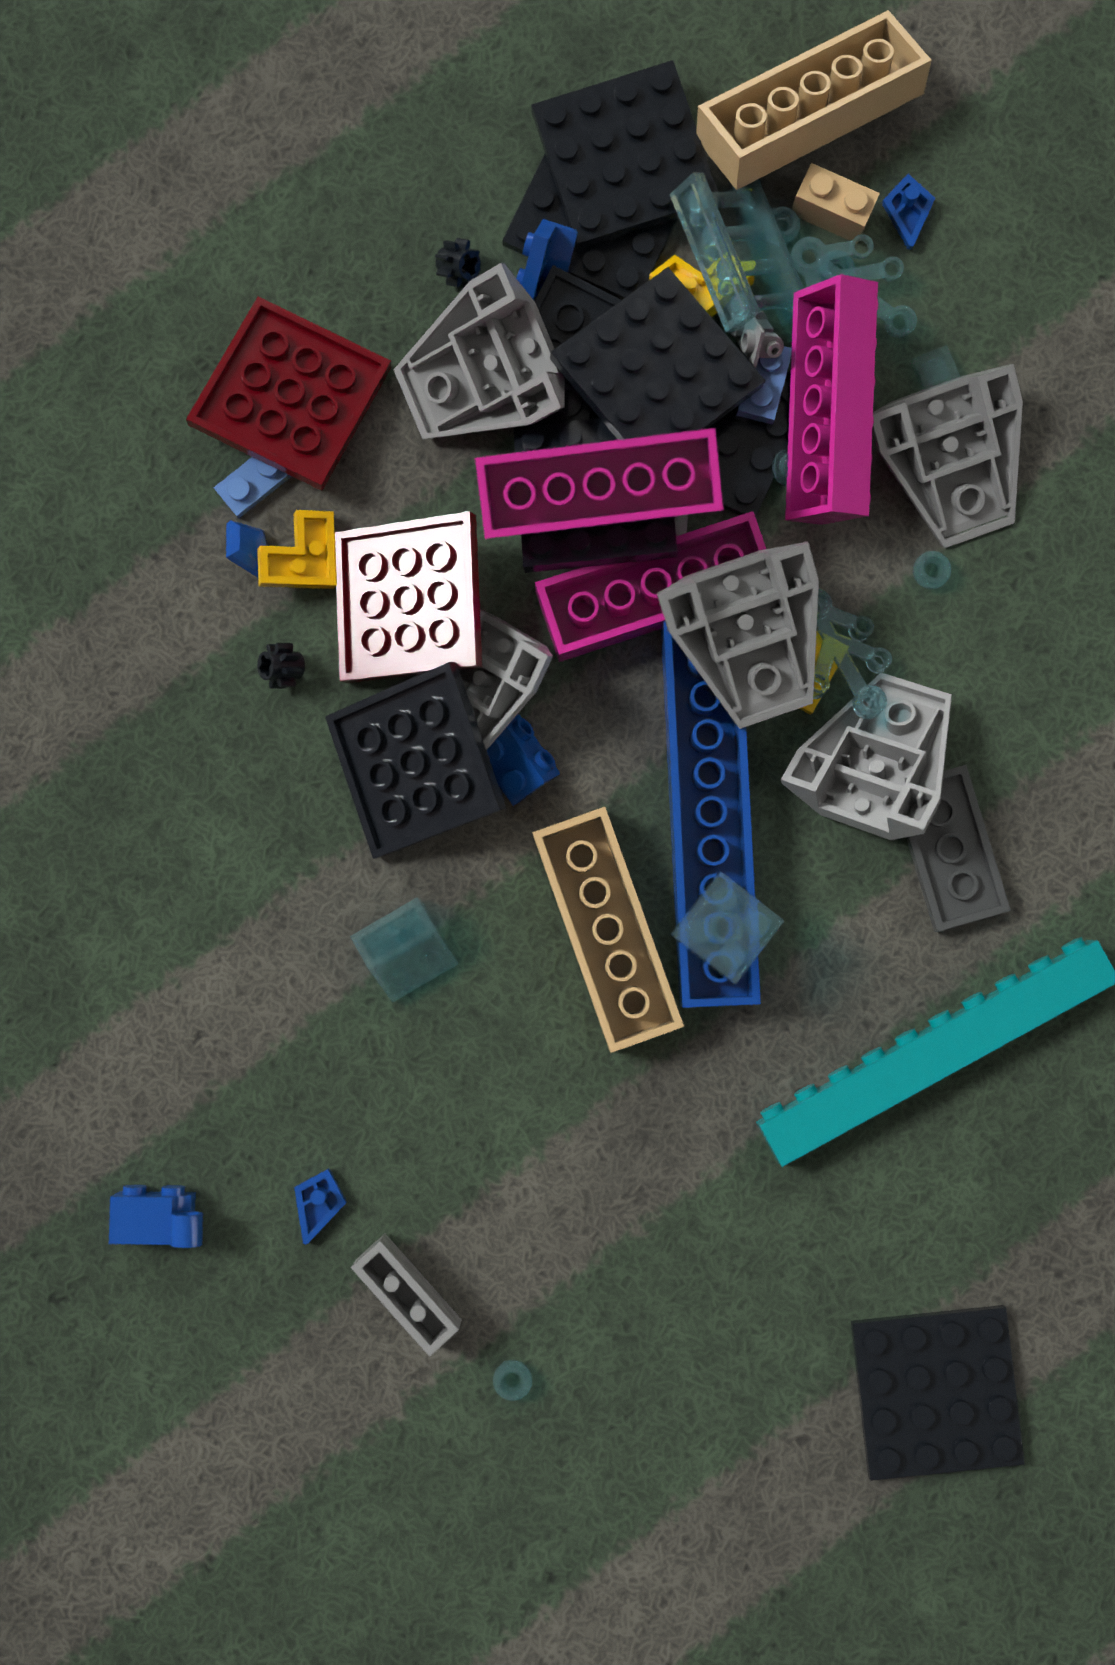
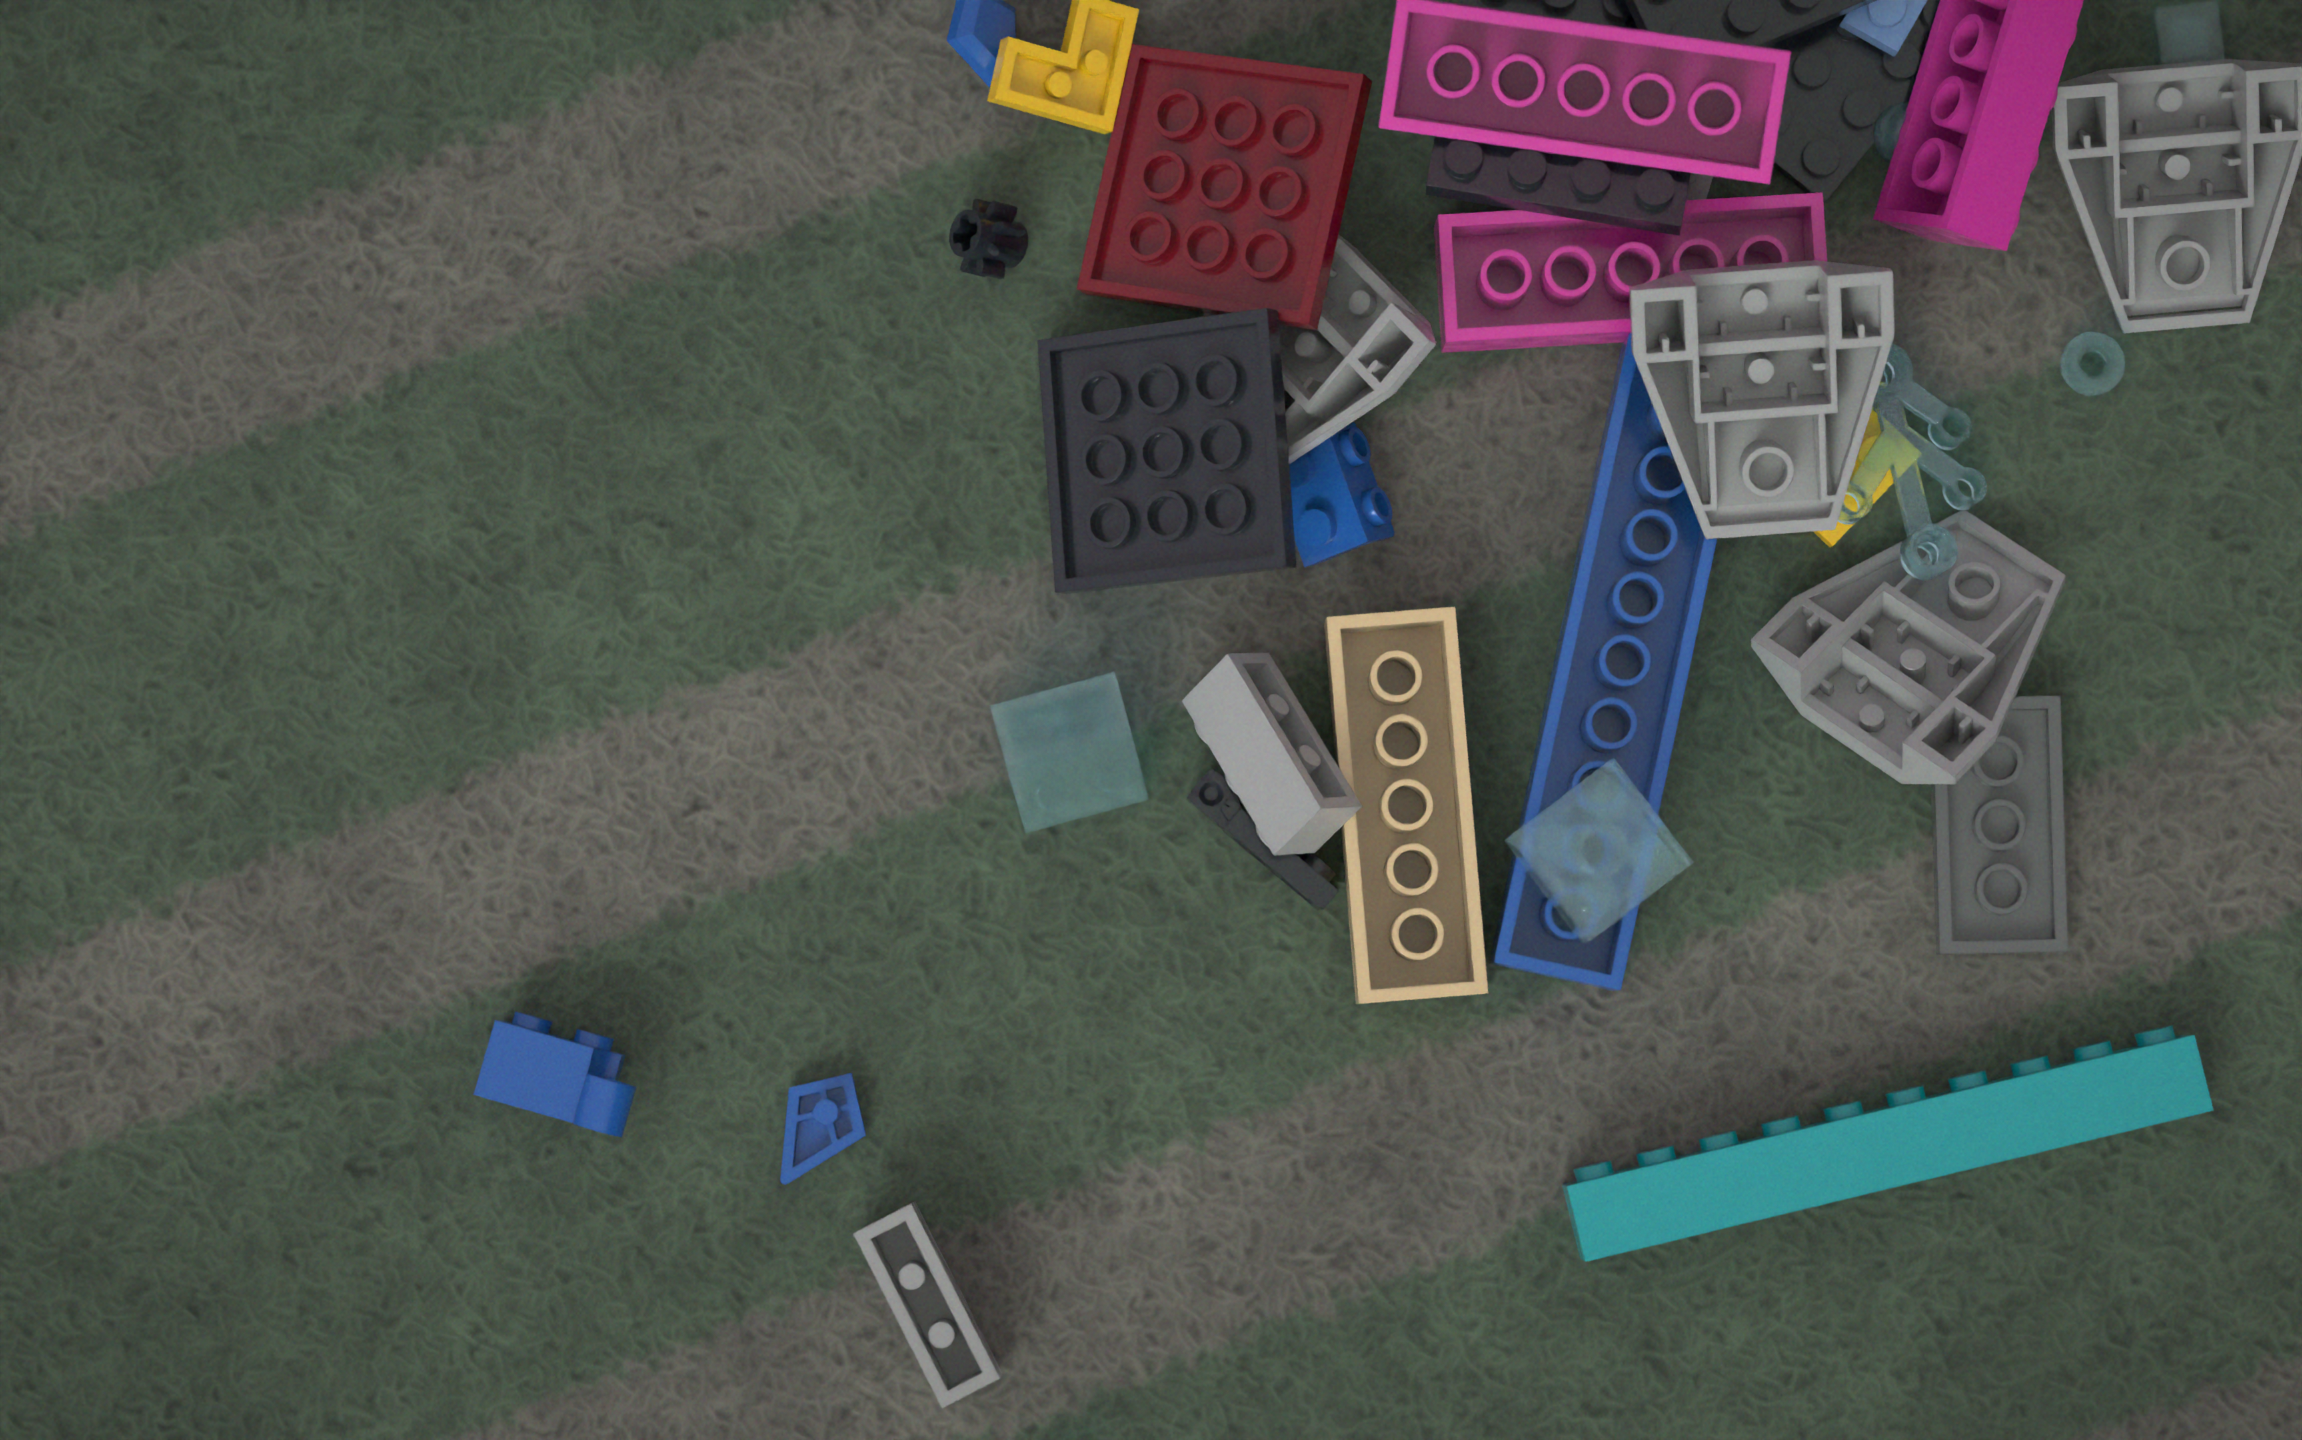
camera: 15 degrees right, 0 degrees up
(521, 920) = (1271, 753): none -> light grey brick
(529, 968) = (1303, 874): none -> black hinge

